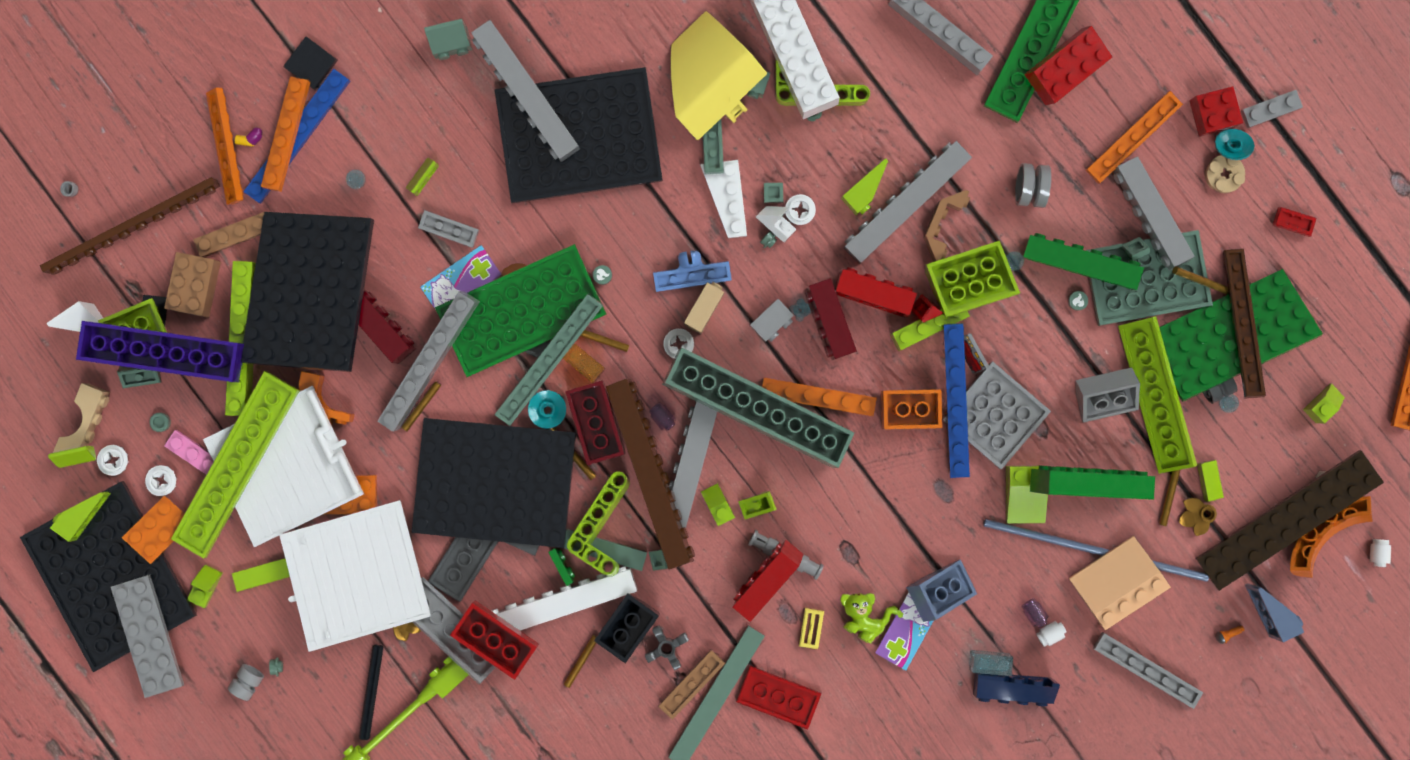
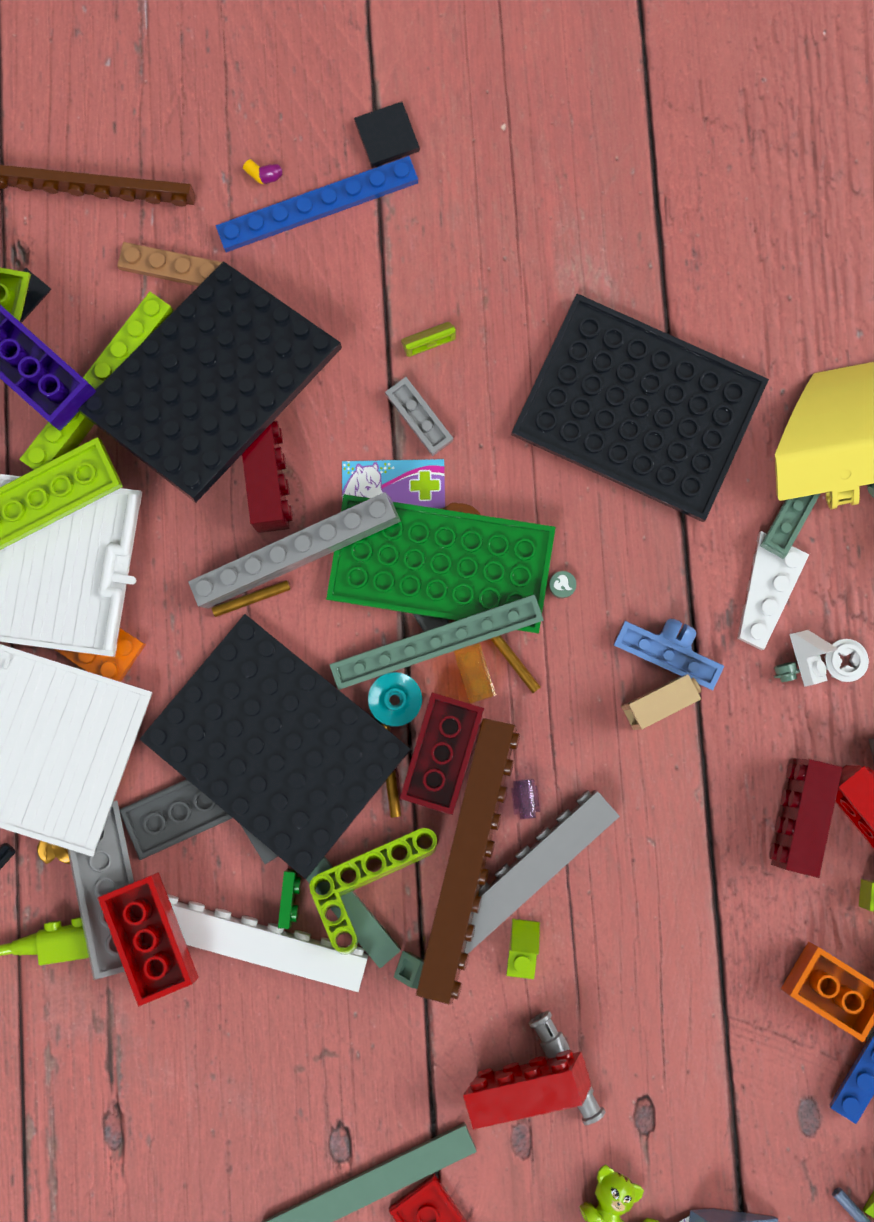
camera: 40 degrees right, 5 degrees down
(69, 189) = (26, 99): light grey hinge -> none
(192, 284) = (87, 290): medium nougat brick -> none
(224, 146) = (229, 162): orange plate -> none
(285, 134) = (306, 191): orange plate -> none
(310, 379) = (150, 492): orange arch -> none
(355, 179) = (351, 293): clear light blue plate -> none
(448, 39) = (562, 202): sand green slope -> none
(525, 90) = (613, 316): light grey brick -> none
(580, 662) = (235, 1030): pearl gold bar -> none
(627, 627) = (317, 1030): black slope -> none
(652, 655) = (333, 1083): dark grey pin -> none
(671, 338) = (612, 718): white gear -> none
(691, 684) = (348, 1151): medium nougat plate -> none
(757, 505) = (572, 983): lime slope -> none
(758, 408) = (651, 868): sand green brick -> none
(772, 320) = (730, 770): light grey brick -> none
(773, 192) = (827, 619): sand green plate -> none
(803, 306) = (778, 782): clear light blue plate -> none
(803, 629) = (532, 1170): light yellow tile -> none
(822, 397) = (728, 899): orange plate -> none

